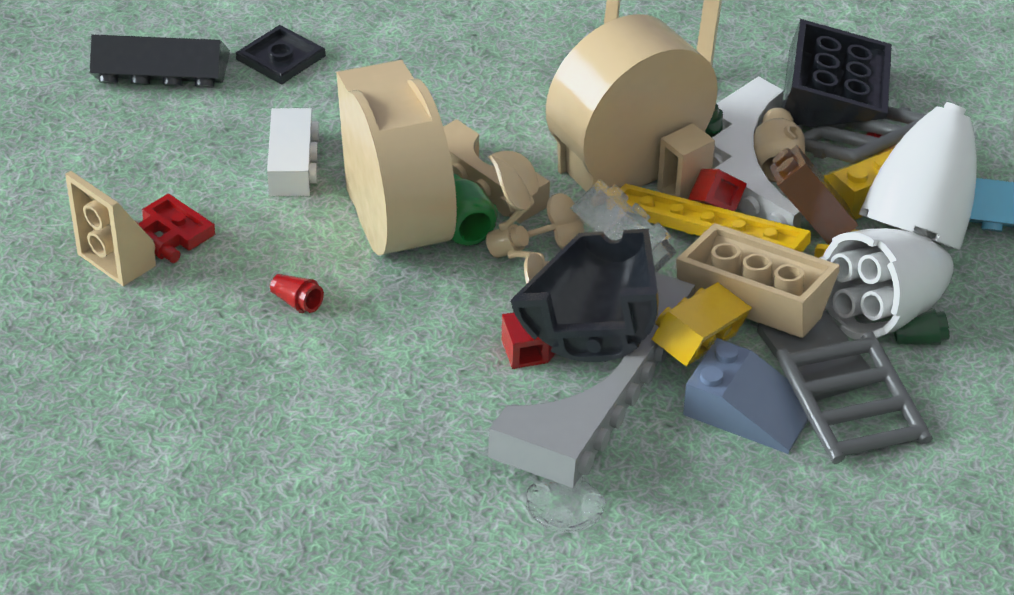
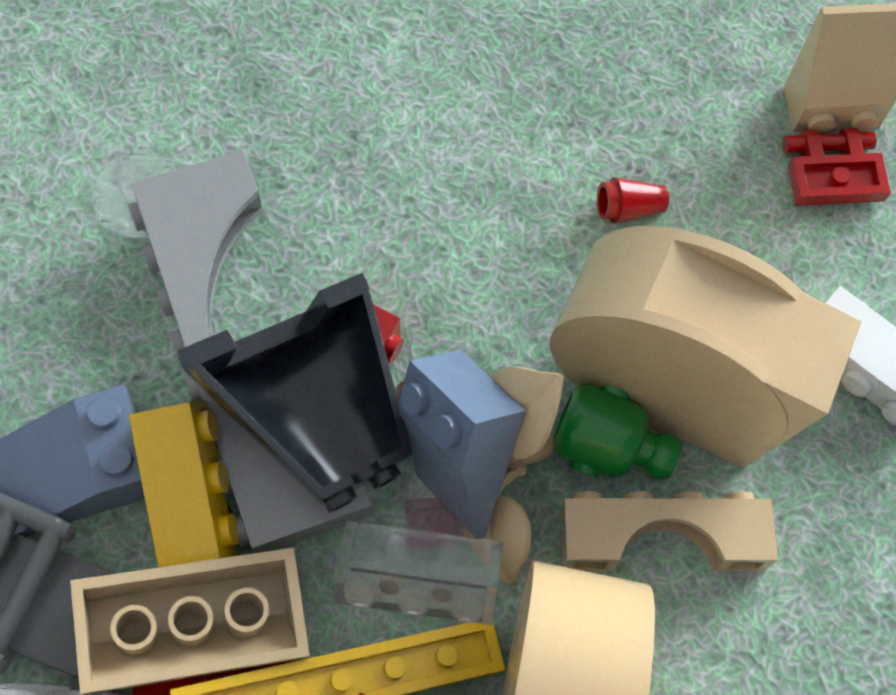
camera: 130 degrees right, 25 degrees up
(546, 208) = (459, 434): none -> sand blue slope

